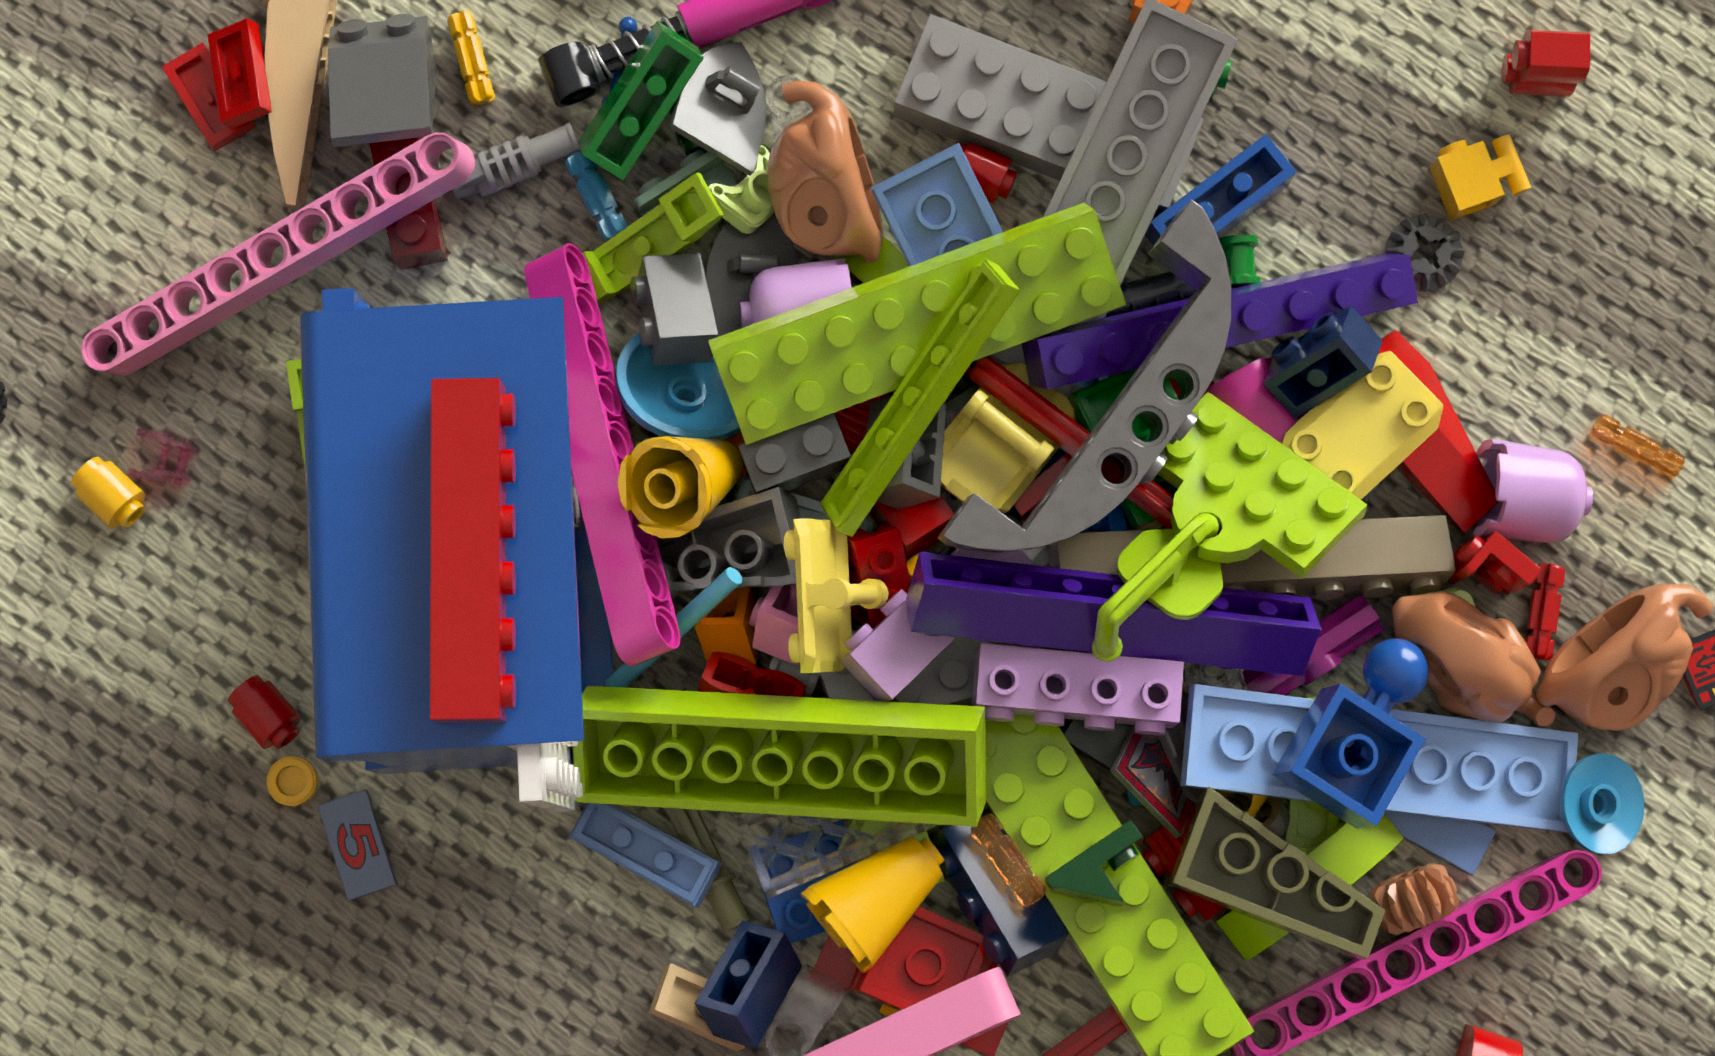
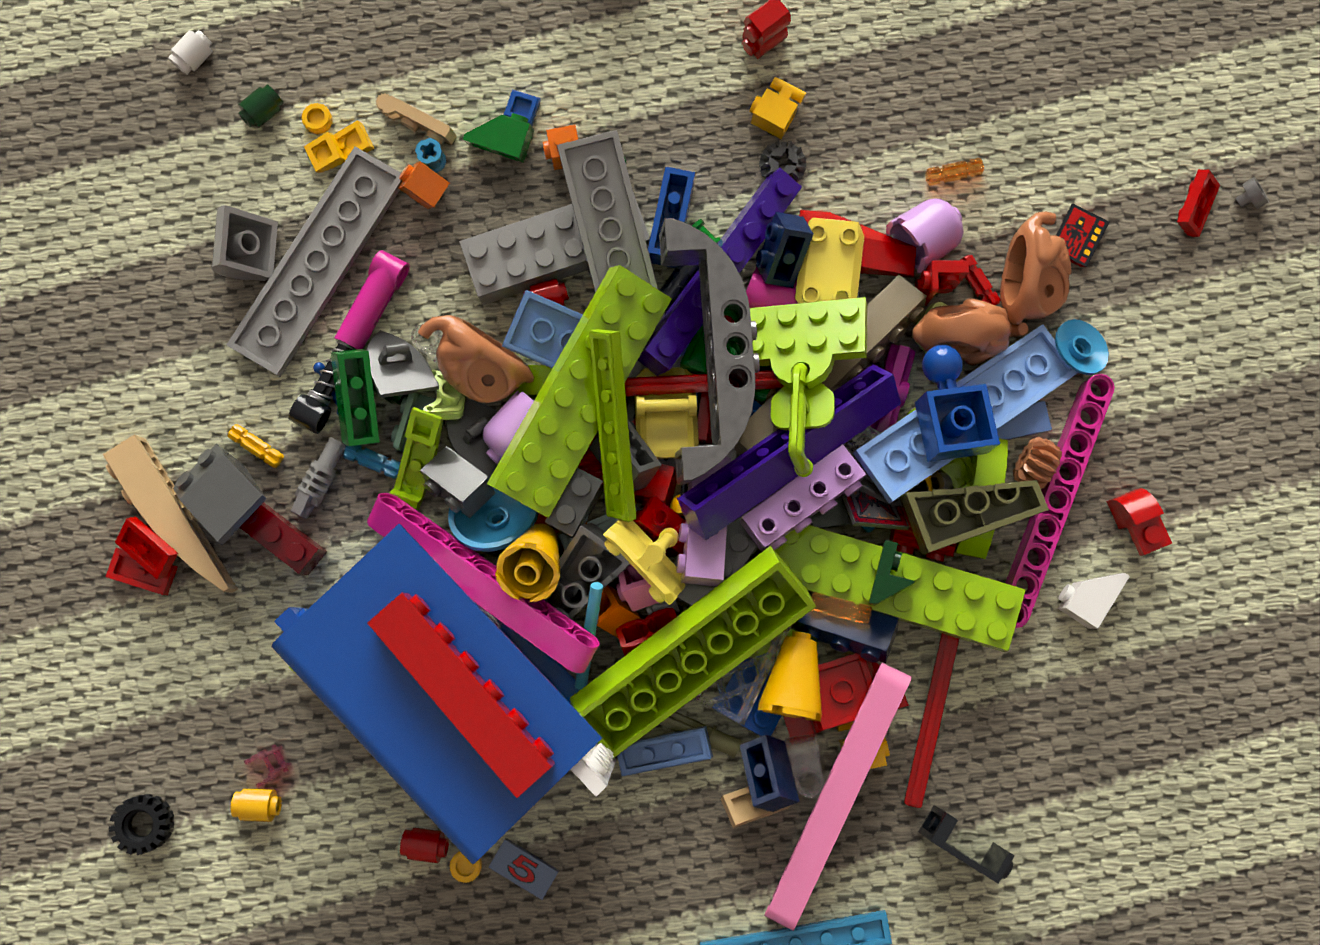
camera: 40 degrees left, 0 degrees up
(255, 255) = (229, 630): bright pink beam -> none

